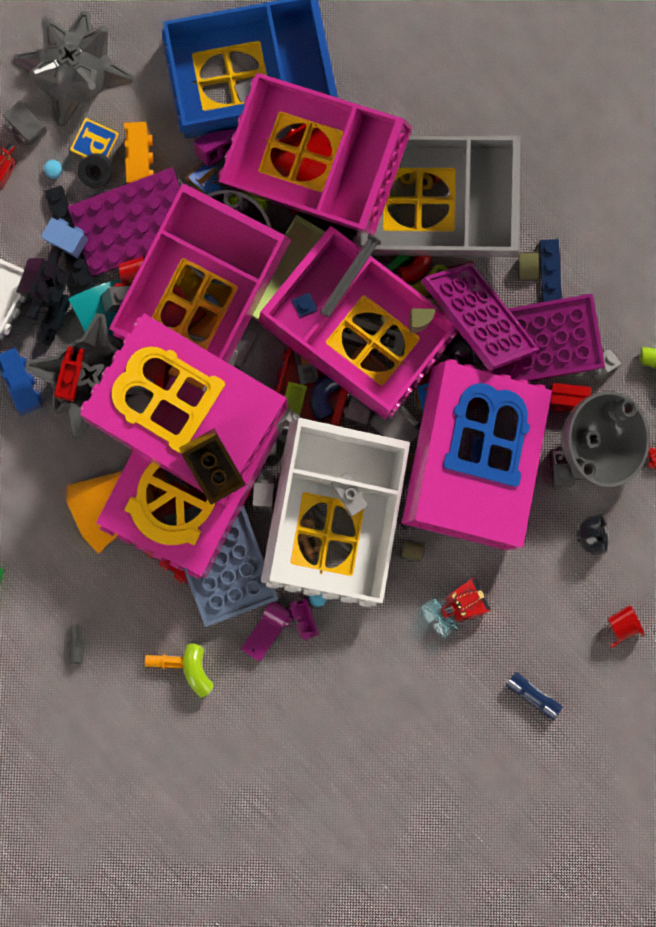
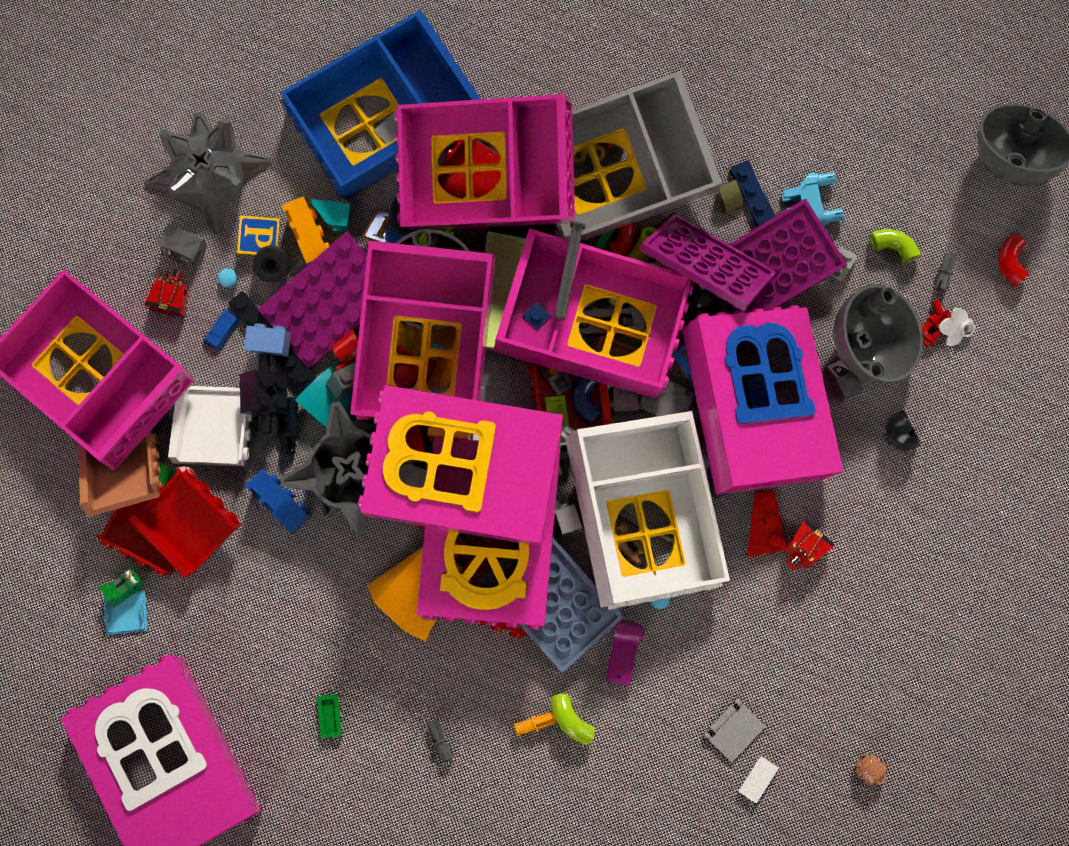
camera: 20 degrees left, 0 degrees up
(29, 213) = (221, 330): none -> blue tile
(69, 375) = (329, 476): red hinge -> none
(169, 148) = (334, 214): none -> teal slope
(212, 466) = (517, 512): dark brown slope -> none
(213, 146) = (379, 194): magenta slope -> none
(306, 626) = (655, 623): magenta hinge -> none
(336, 737) = (734, 730): none -> light grey piece
(339, 787) = (758, 779): none -> white tile
(349, 496) = (655, 487): light grey plate -> none
(412, 551) = (734, 516): olive brick -> none
(420, 319) = (655, 286): olive brick -> none
(432, 611) = (777, 568): clear light blue hinge -> none
(438, 571) = (766, 527): none -> red wing
(441, 818) = (871, 770): none -> nougat head
(546, 704) = (896, 608): dark blue axle -> none
(567, 396) = (823, 307): red brick -> none
(601, 290) = (810, 190): none -> medium azure connector
(624, 625) = (968, 508): red hat -> none

